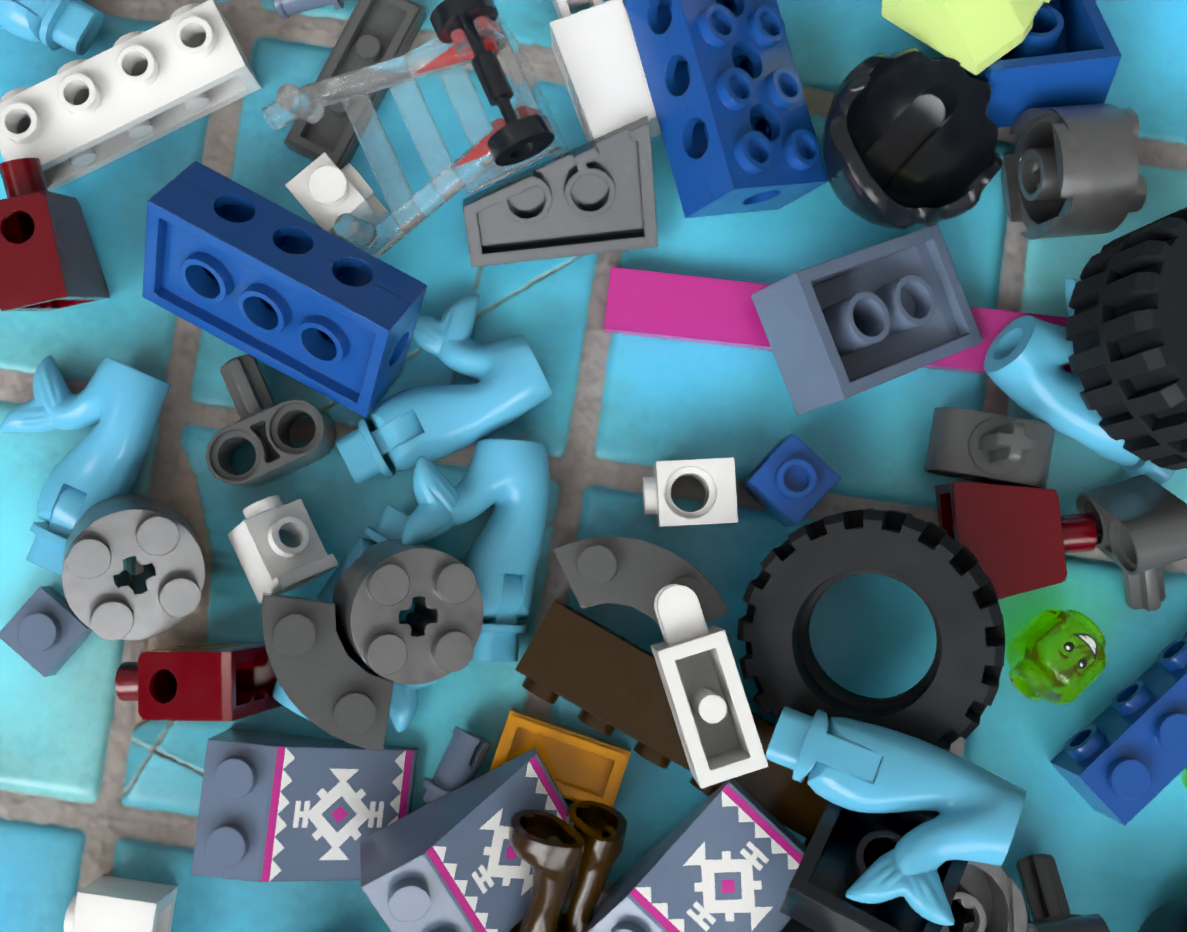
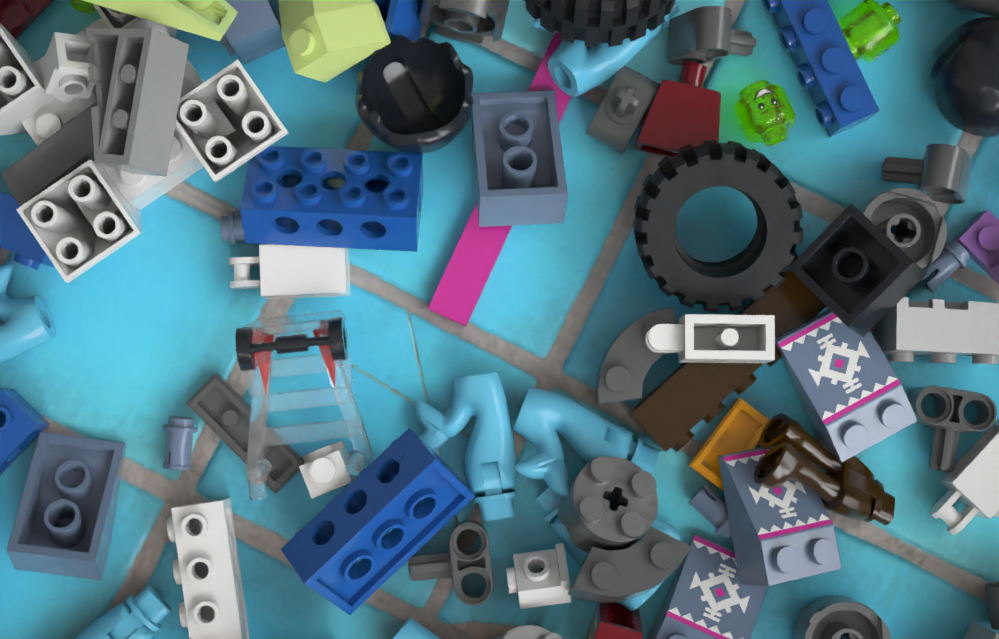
camera: 70 degrees left, 0 degrees up
(570, 205) = (381, 321): wing -> none
(719, 484) = (600, 289): white brick -> none
(790, 481) = (602, 241): blue brick -> none
(894, 772) = (801, 242): medium azure piece -> none

